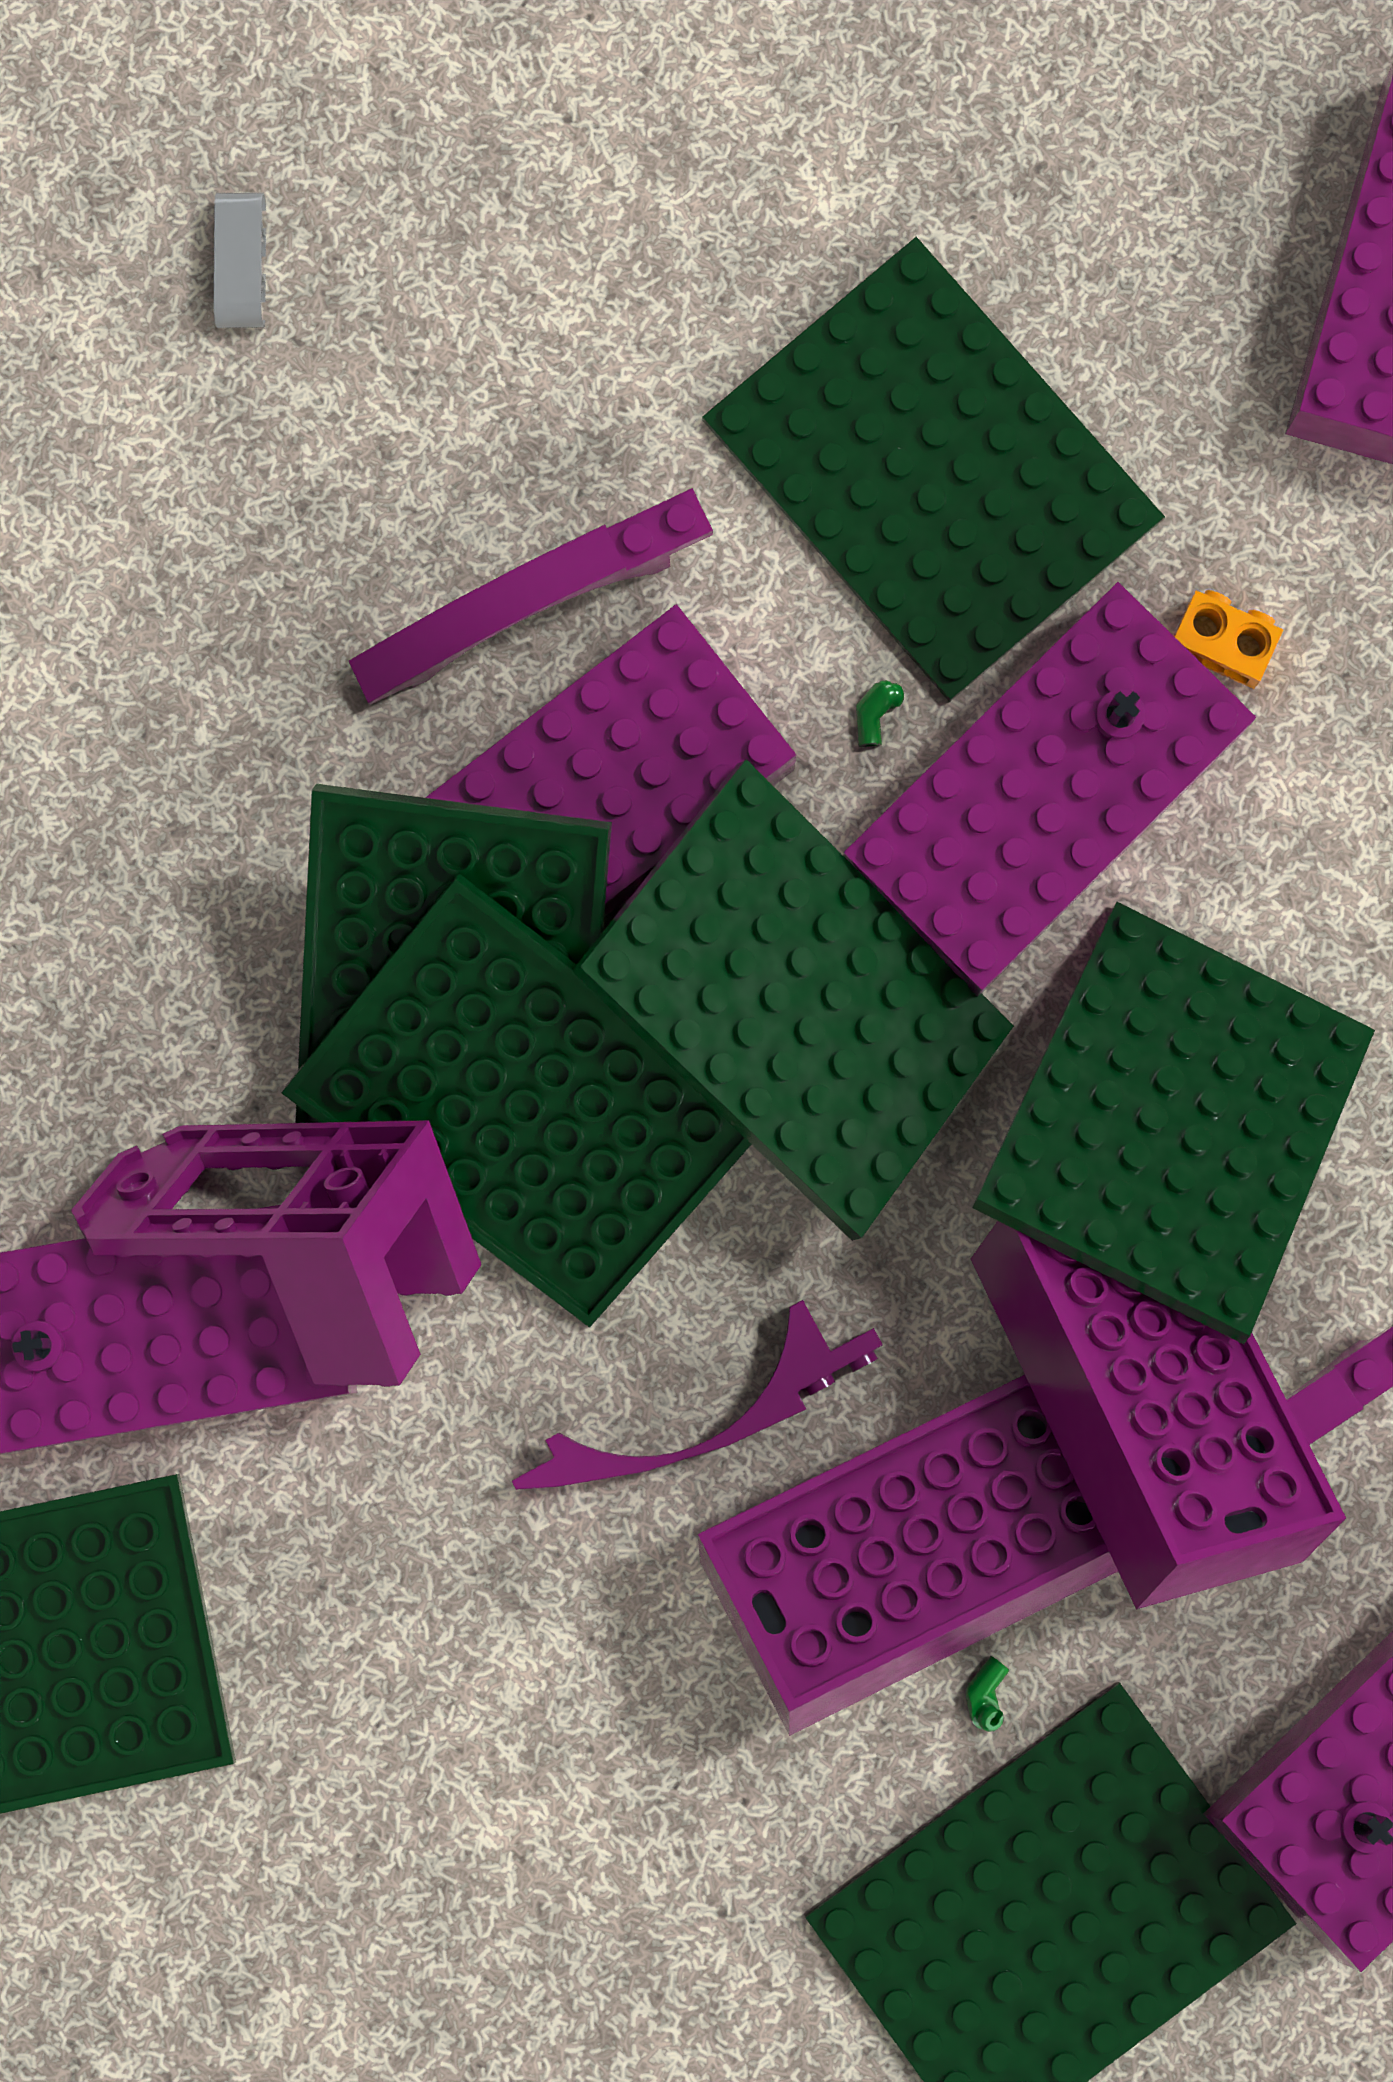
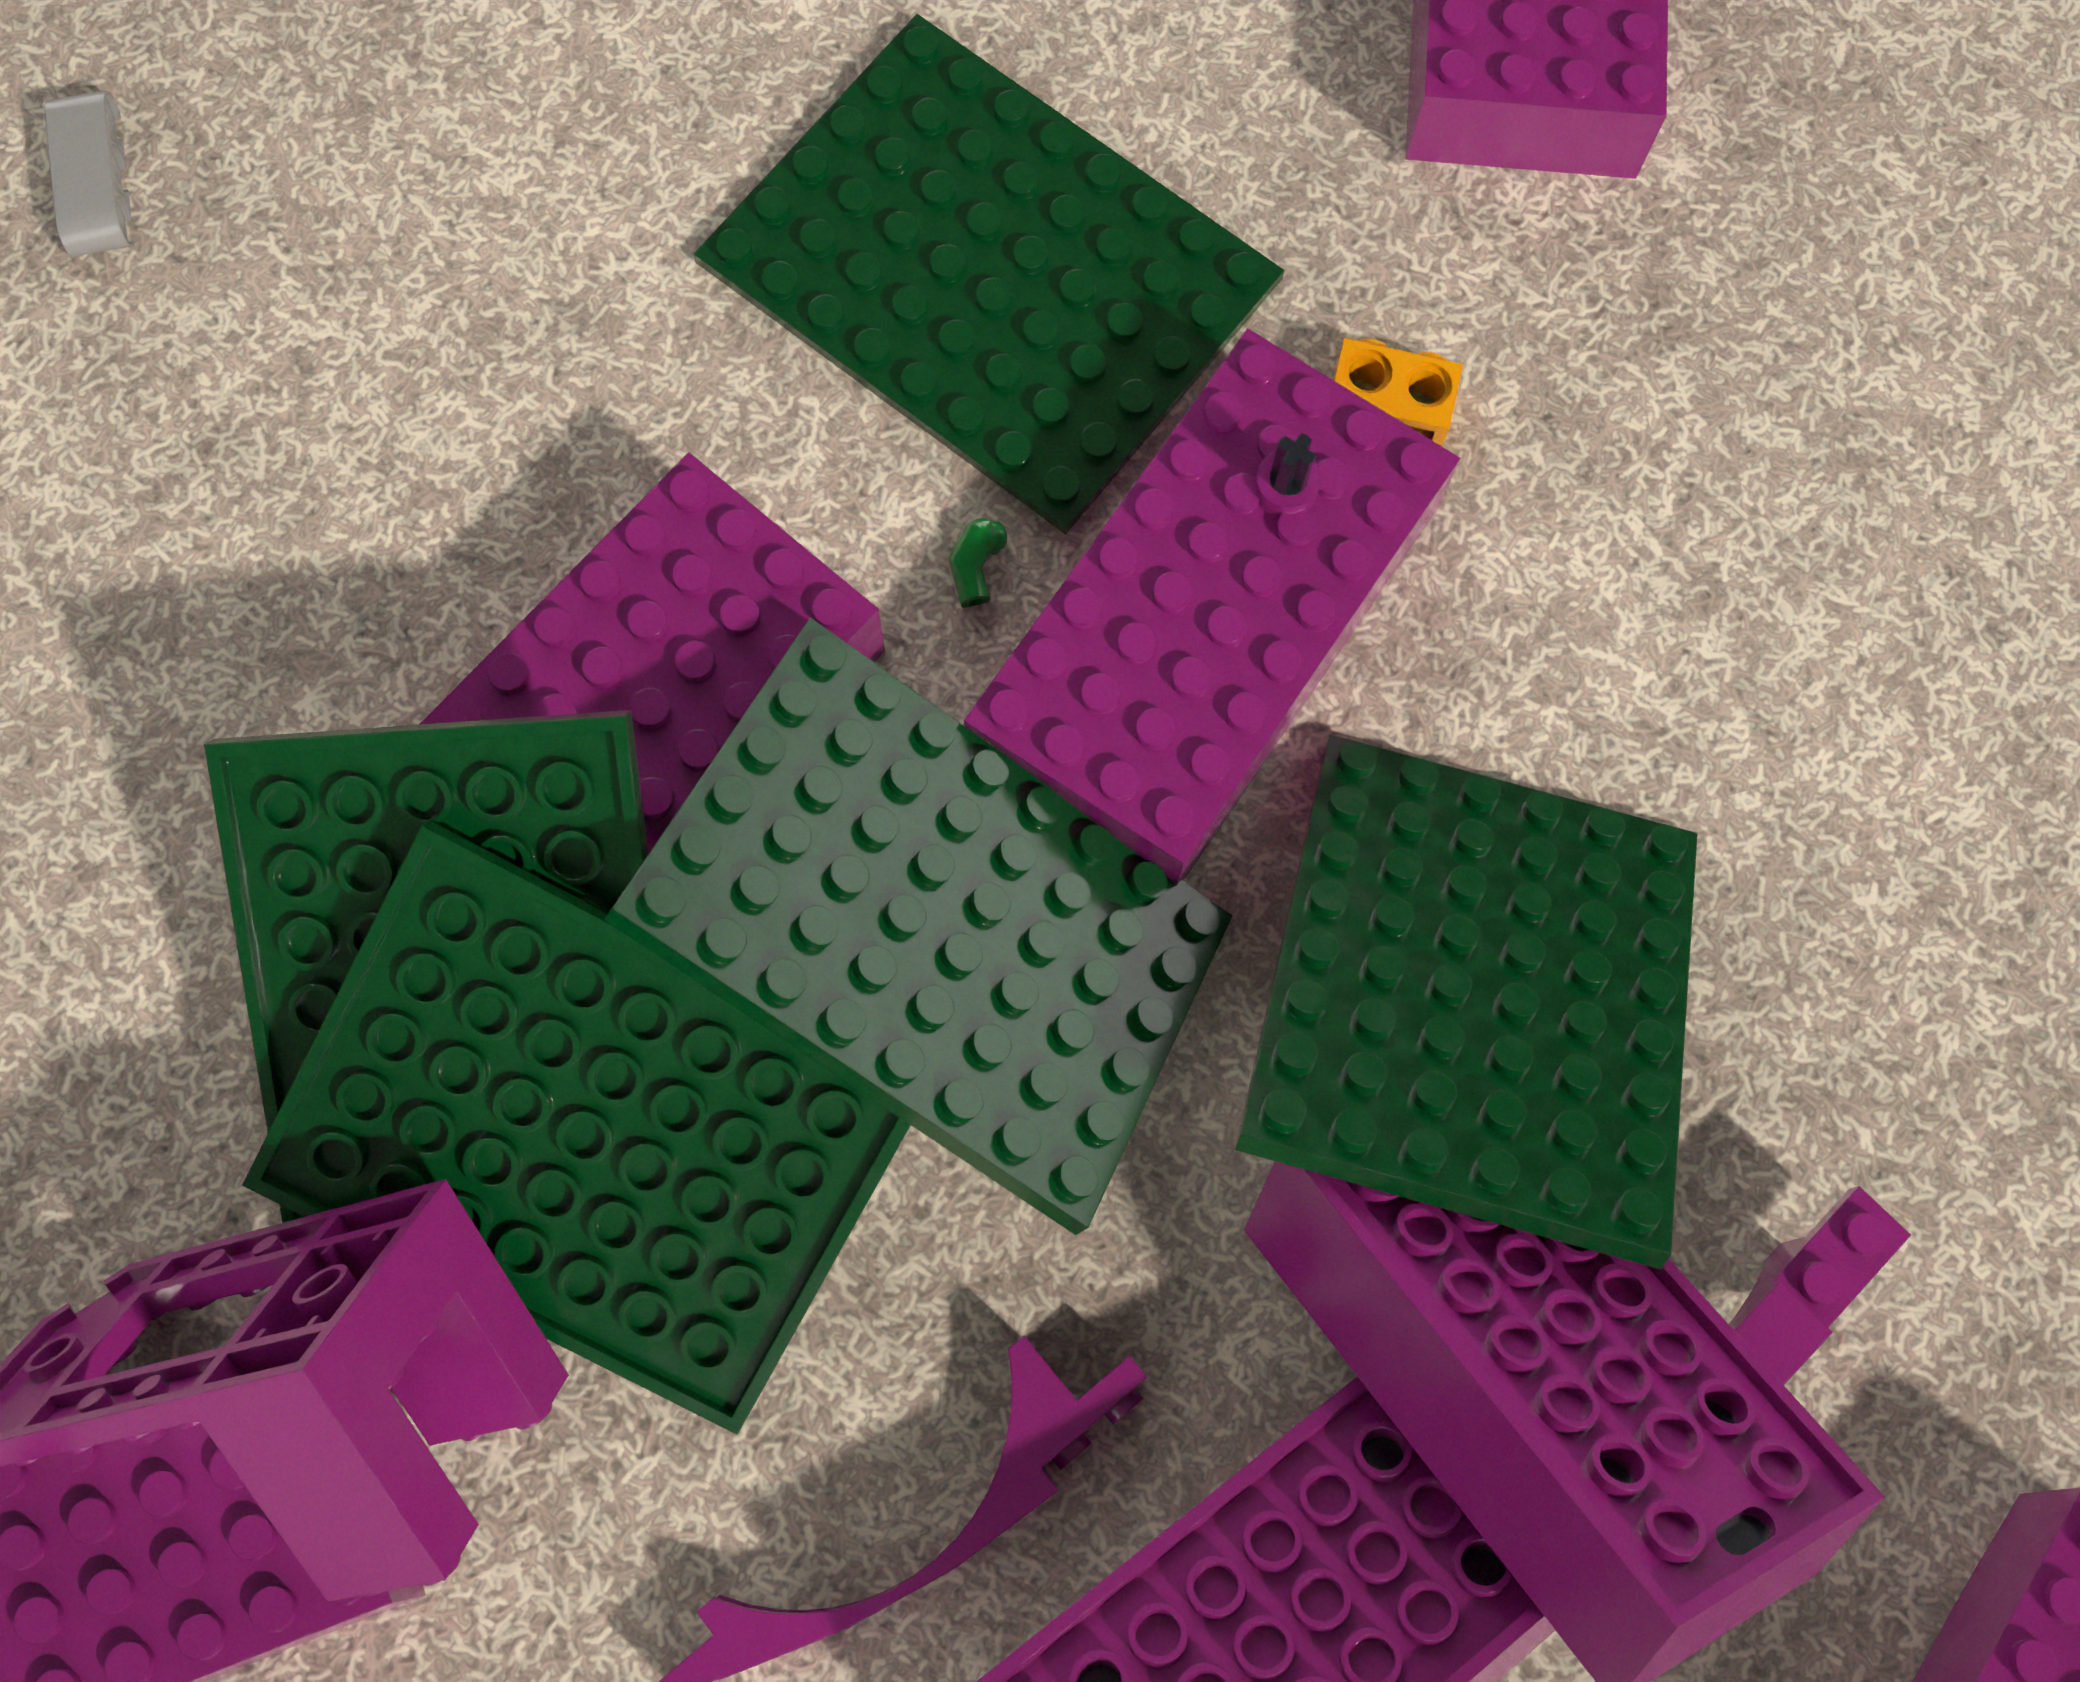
camera: 15 degrees left, 10 degrees down
(596, 559) = (576, 423): magenta slope -> none

